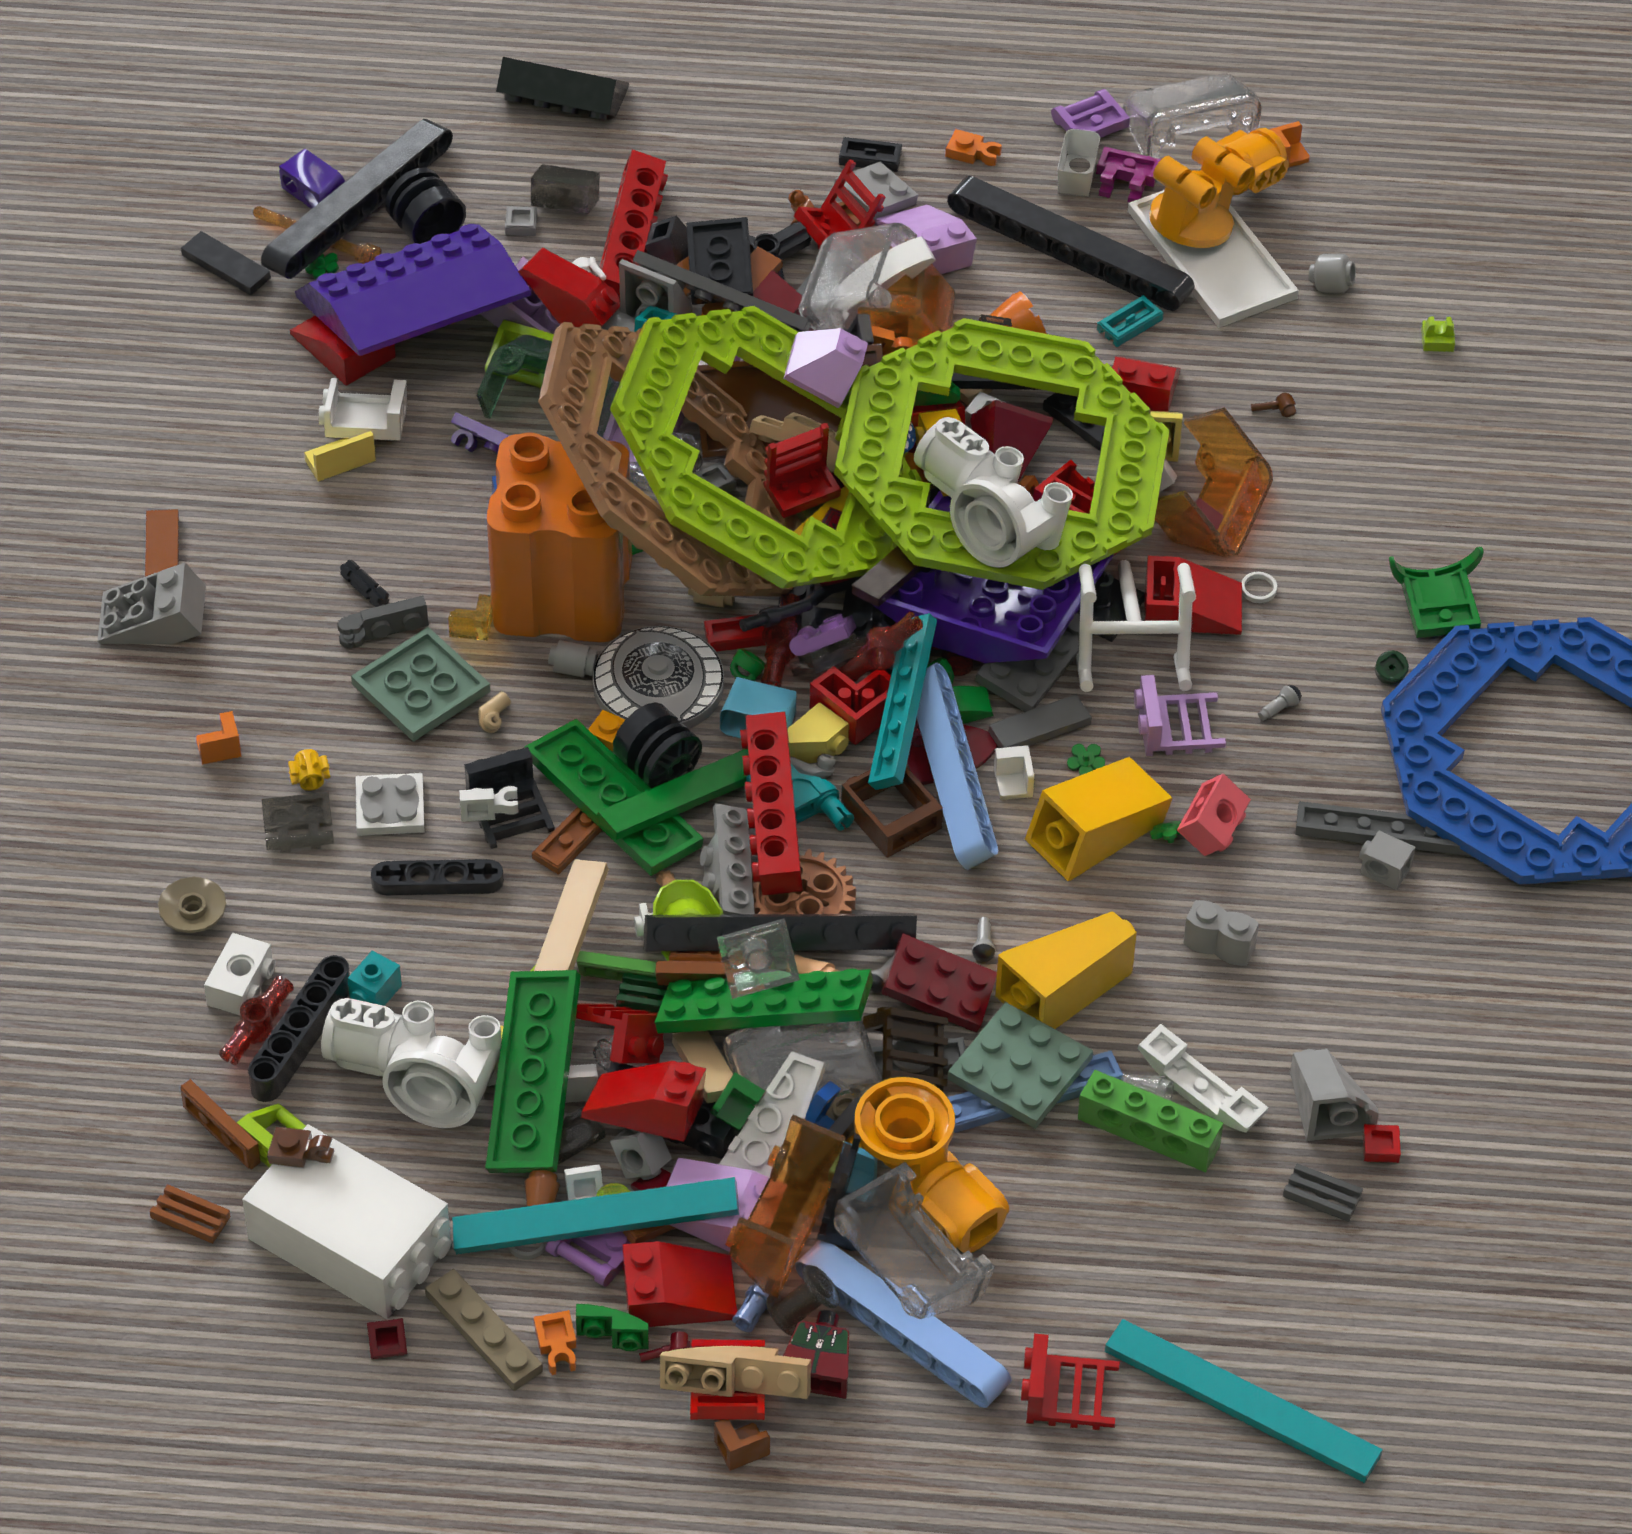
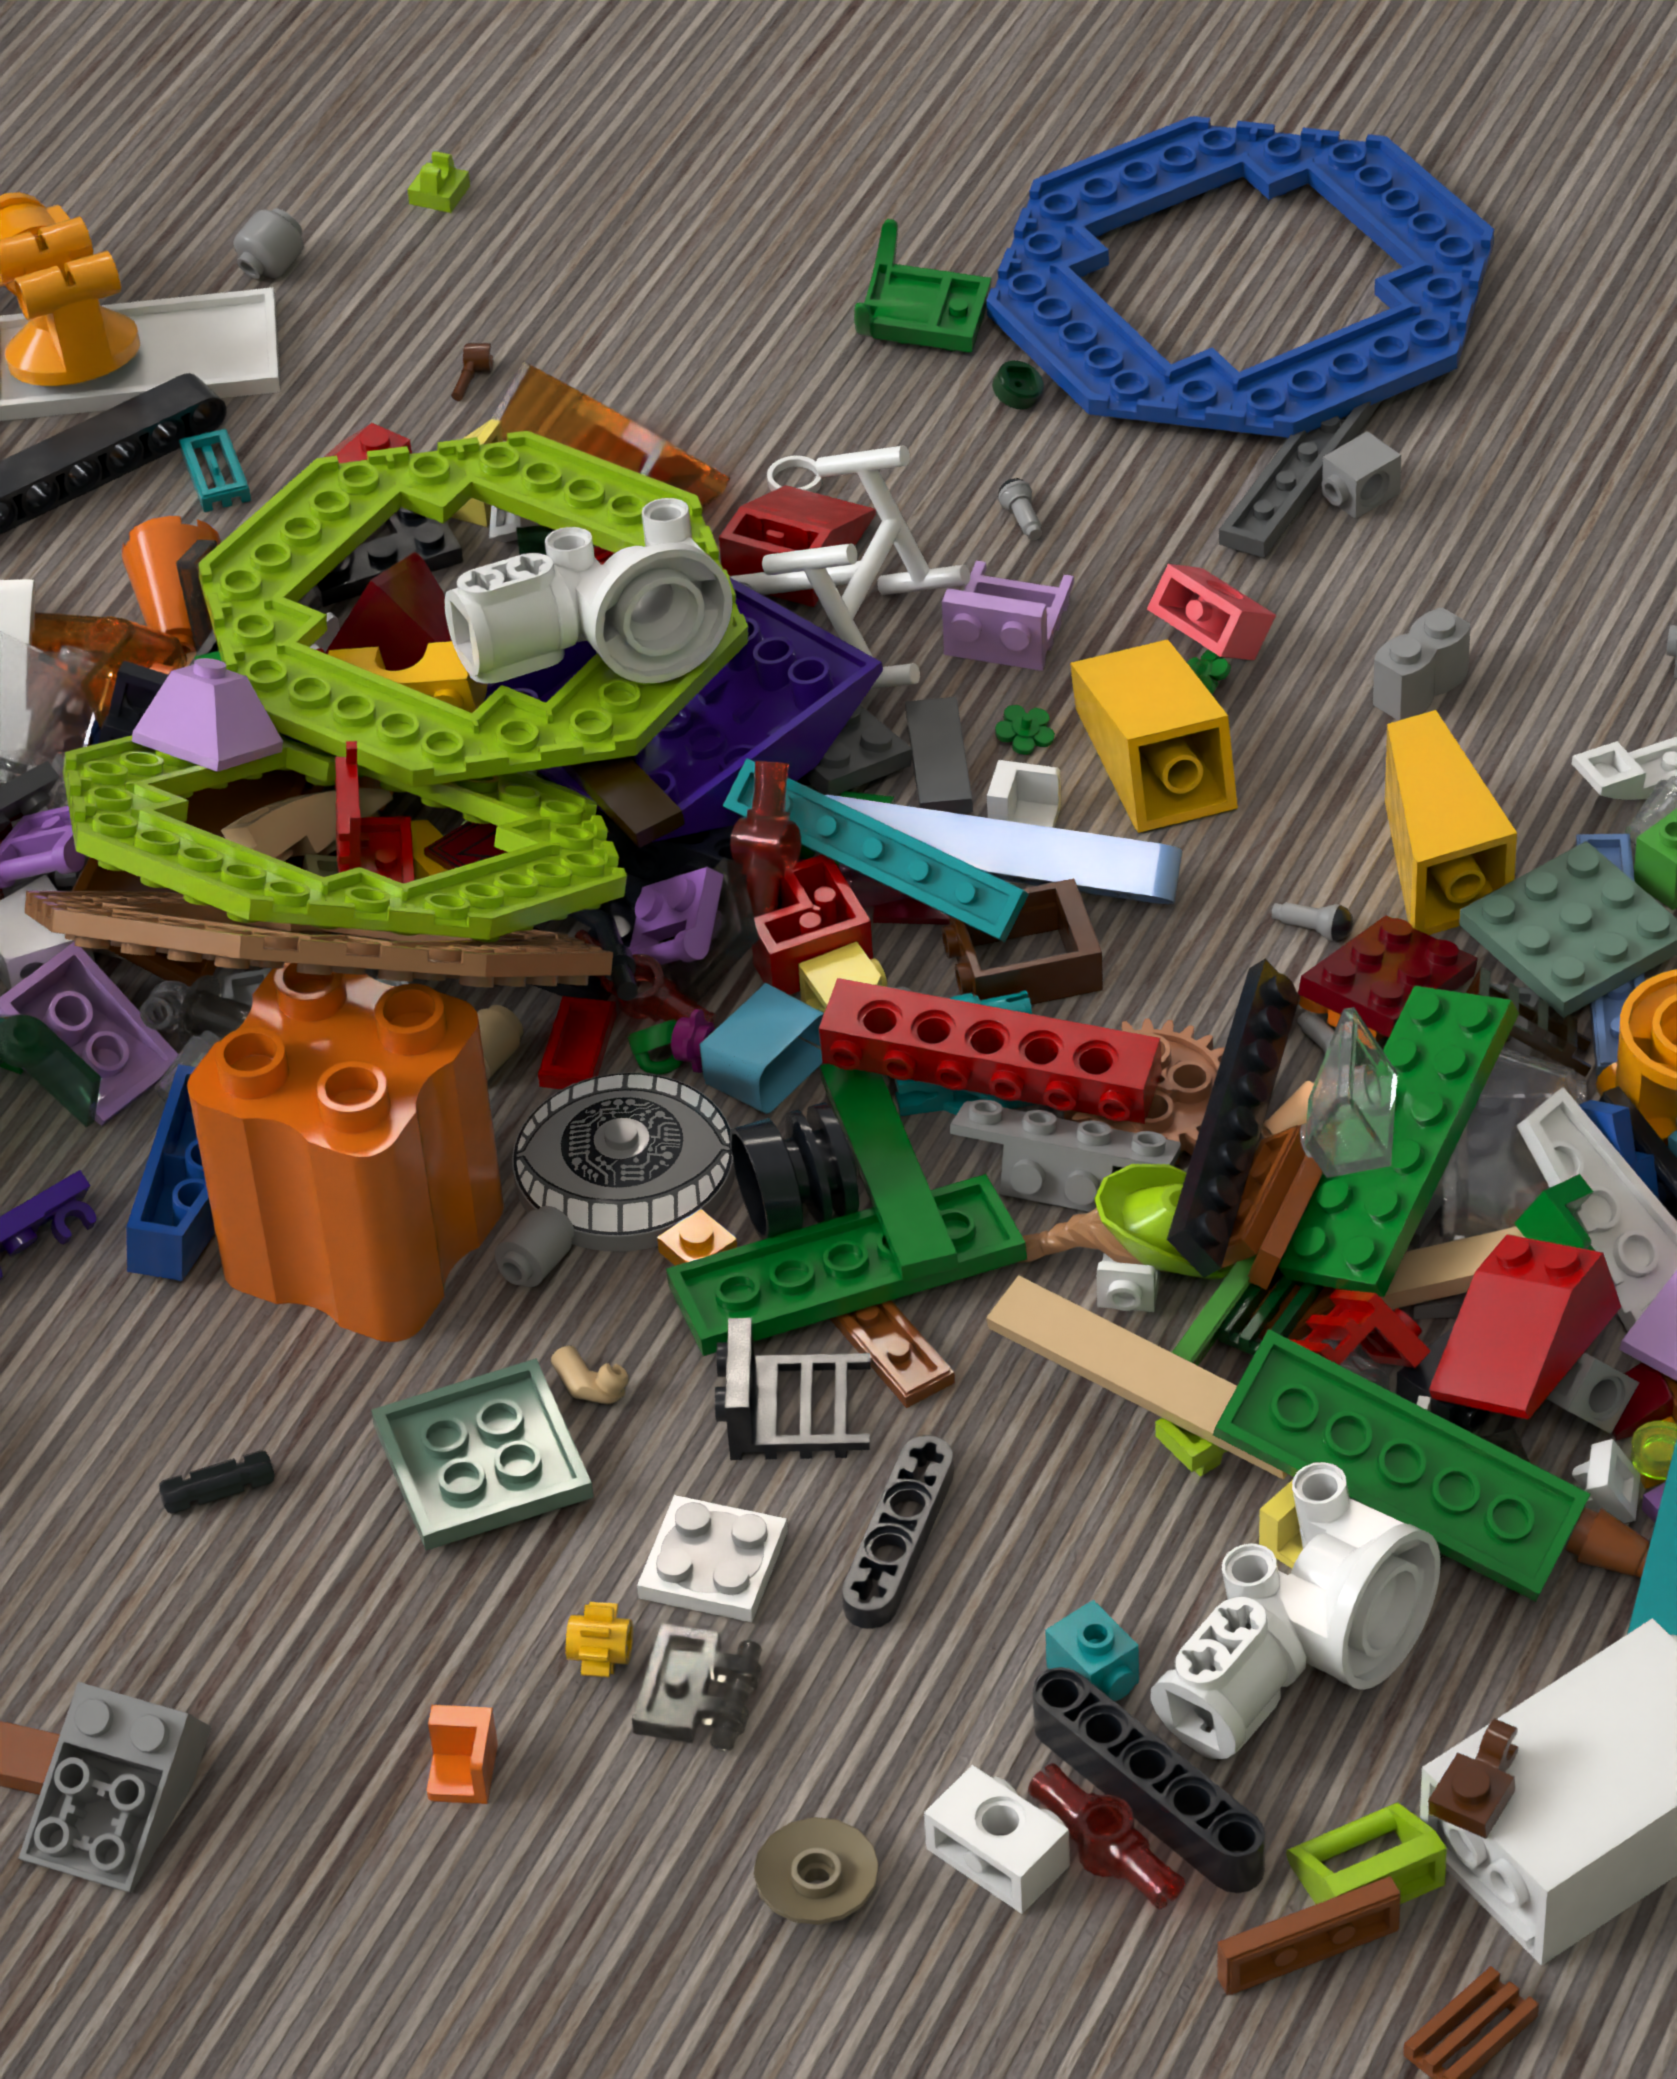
camera: 65 degrees left, 5 degrees down
(383, 621) = (324, 1470): dark grey hinge -> none
(472, 623) = (383, 1353): clear yellow panel -> none
(483, 804) = (799, 1419): white plate -> none
(750, 671) = (688, 1035): none -> magenta plate

